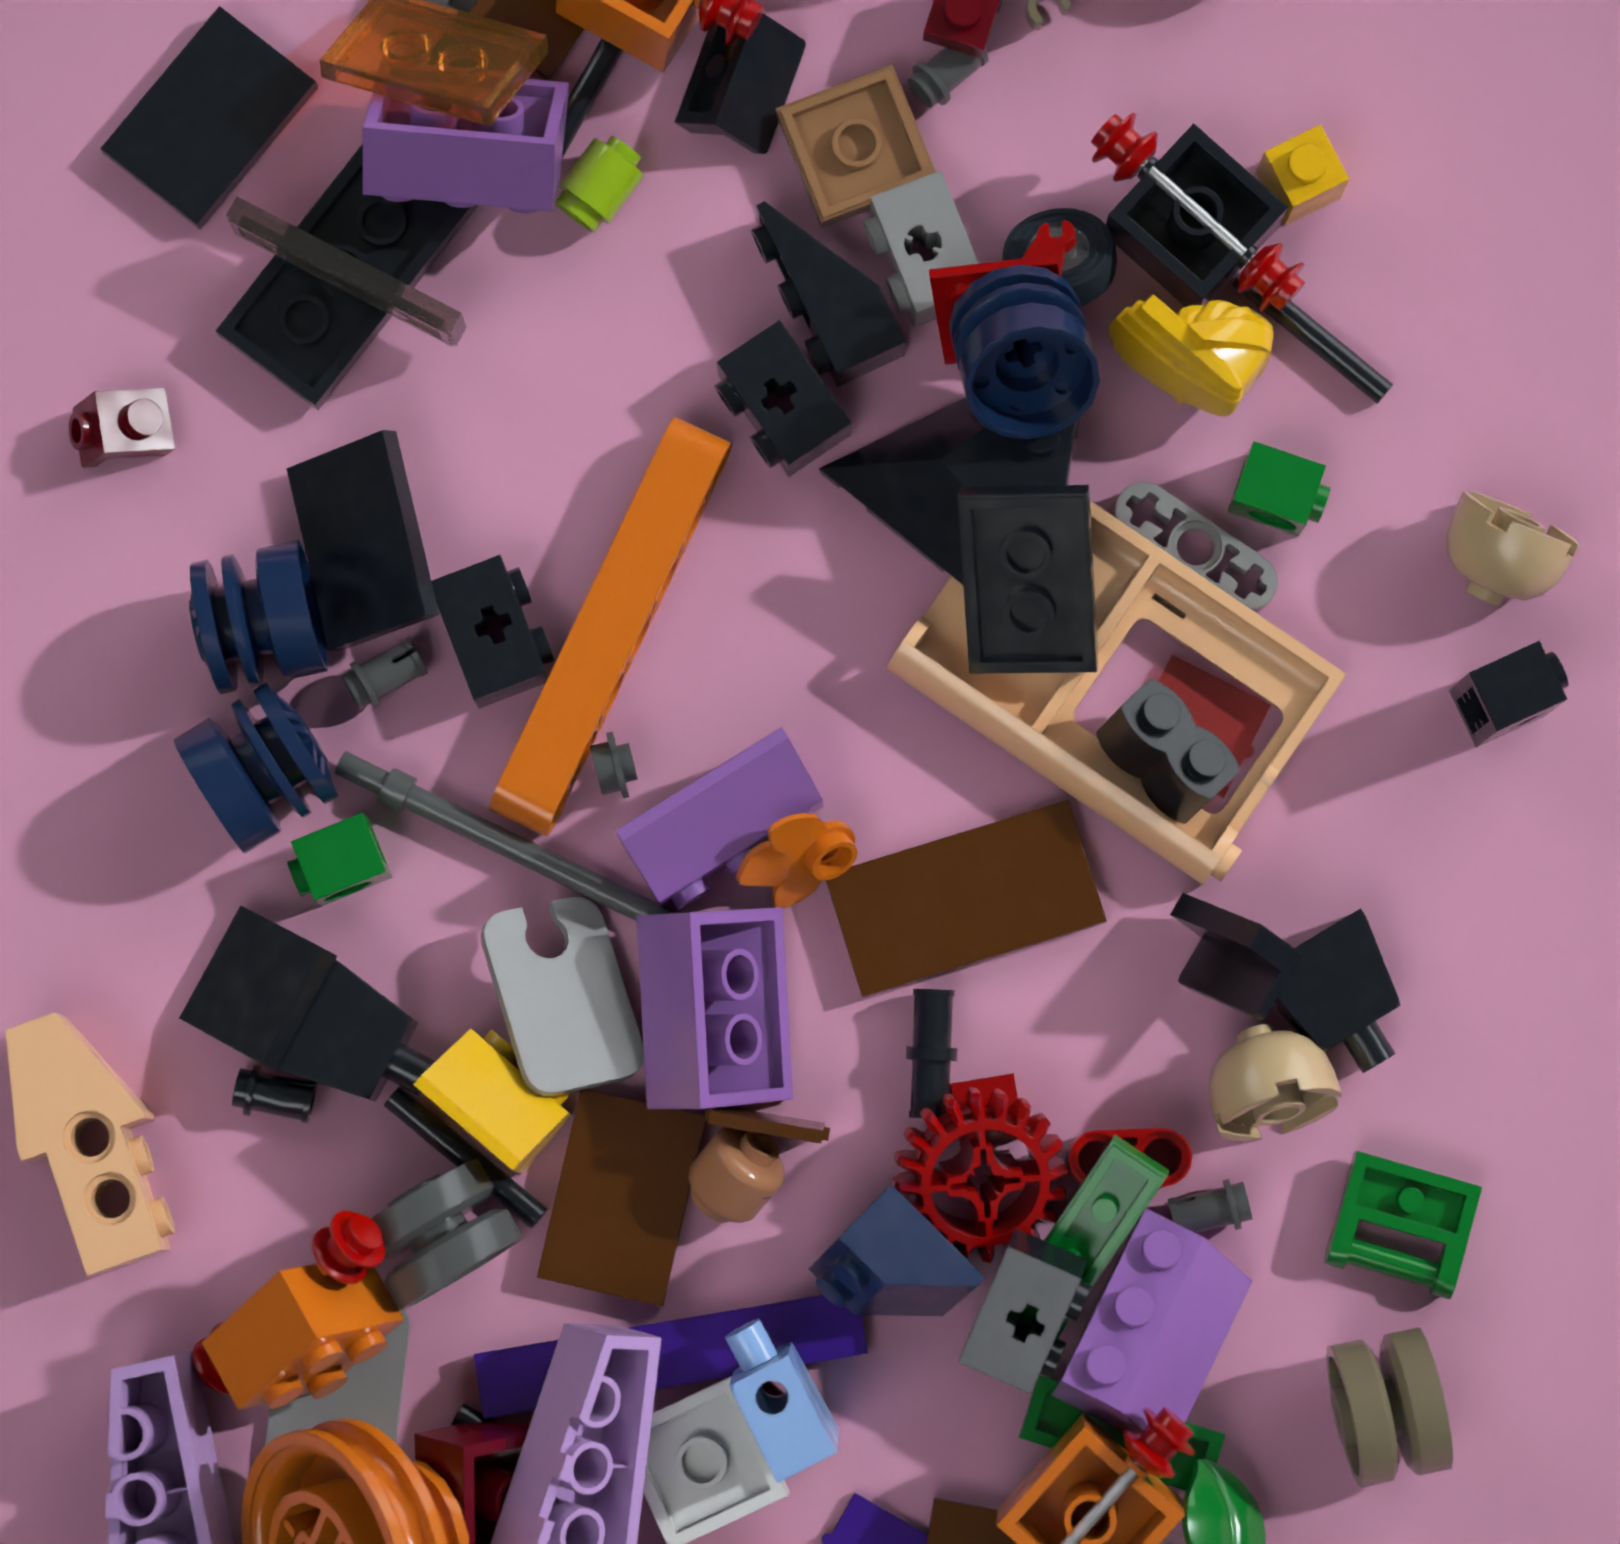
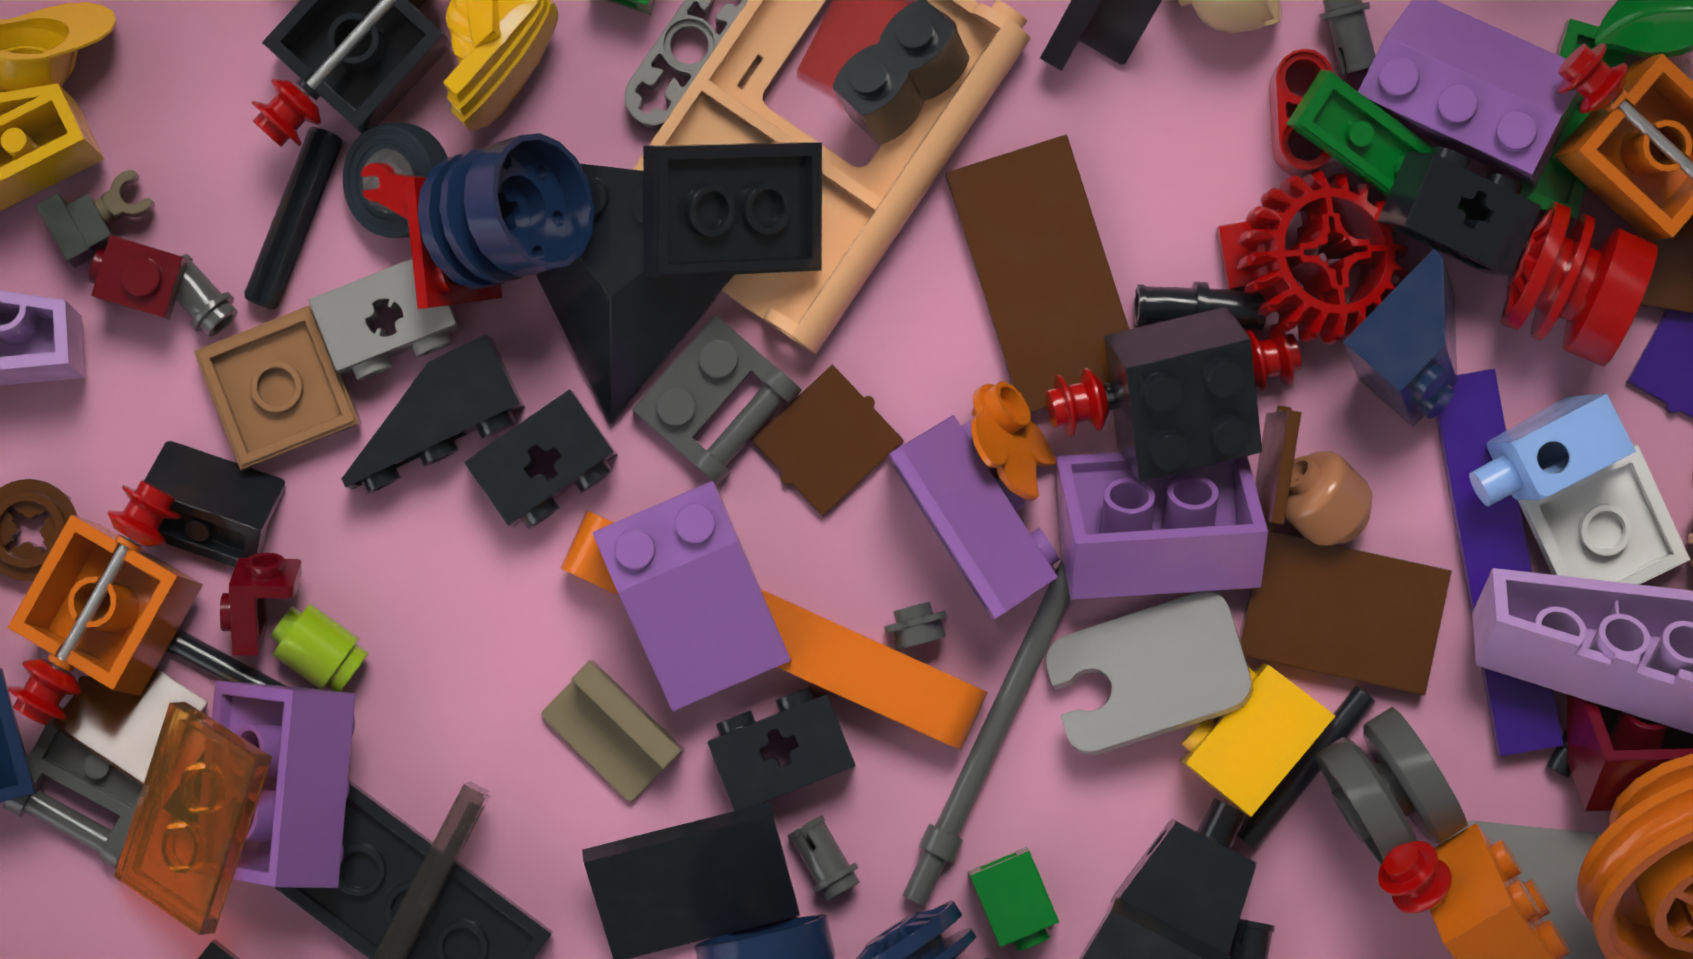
camera: 90 degrees left, 5 degrees up
(515, 468) = (611, 731): none -> dark tan panel
(645, 537) = (692, 595): none -> medium lavender slope
(648, 113) = (244, 607): none -> dark red bracket
(801, 682) = (827, 440): none -> reddish brown piece
(844, 1027) = (1179, 391): none -> black brick
(856, 557) = (701, 384): none -> dark grey plate
(952, 1434) = (1580, 284): none -> red wheel
(1023, 162) = (293, 218): none -> black axle

